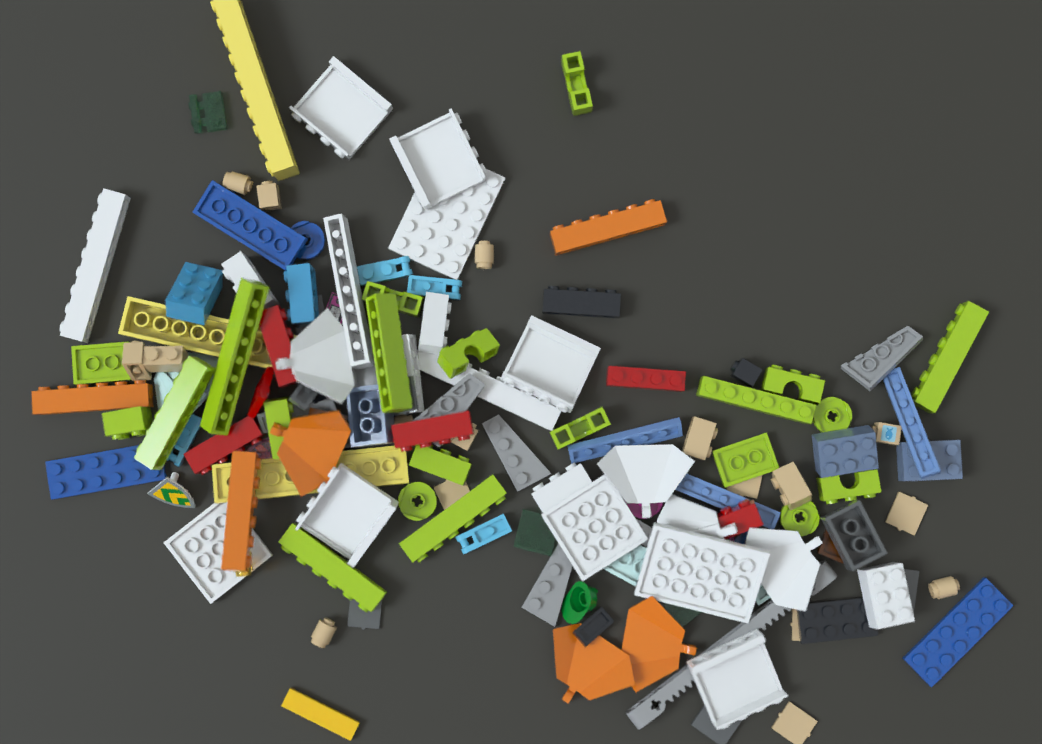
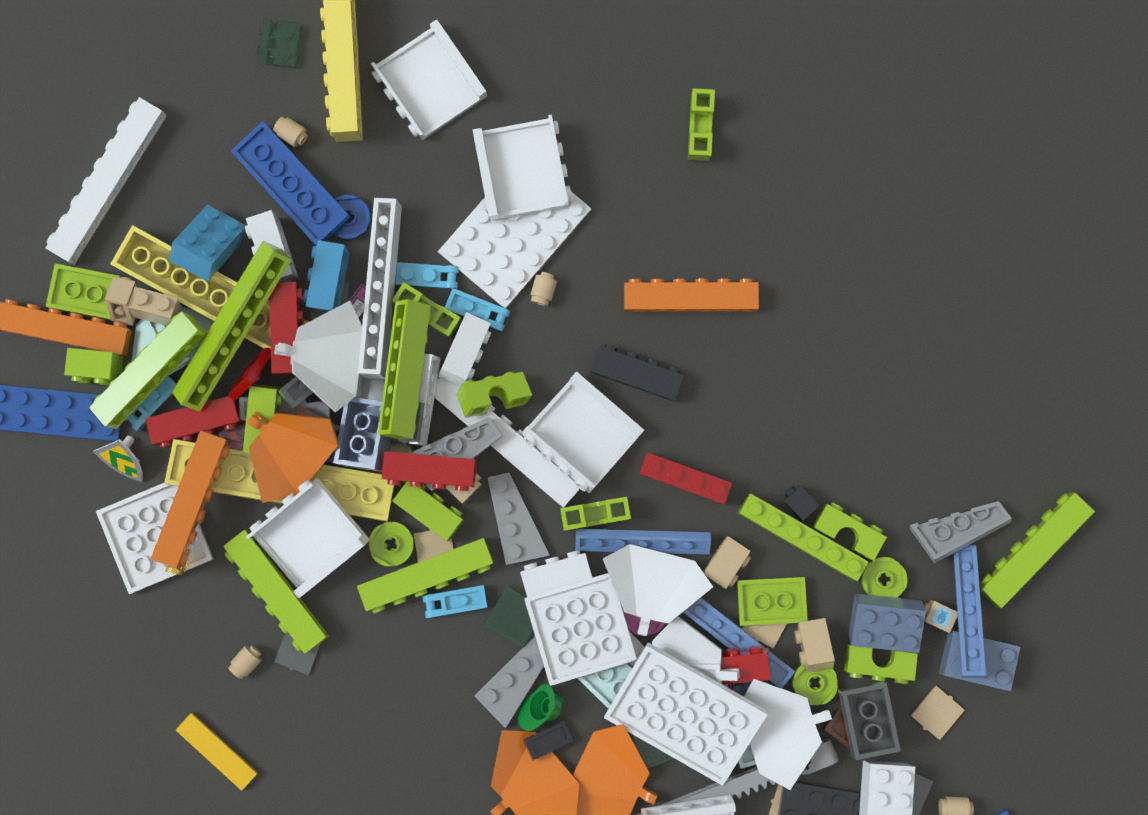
camera: 20 degrees right, 0 degrees up
(268, 196) = (321, 156): tan brick -> none

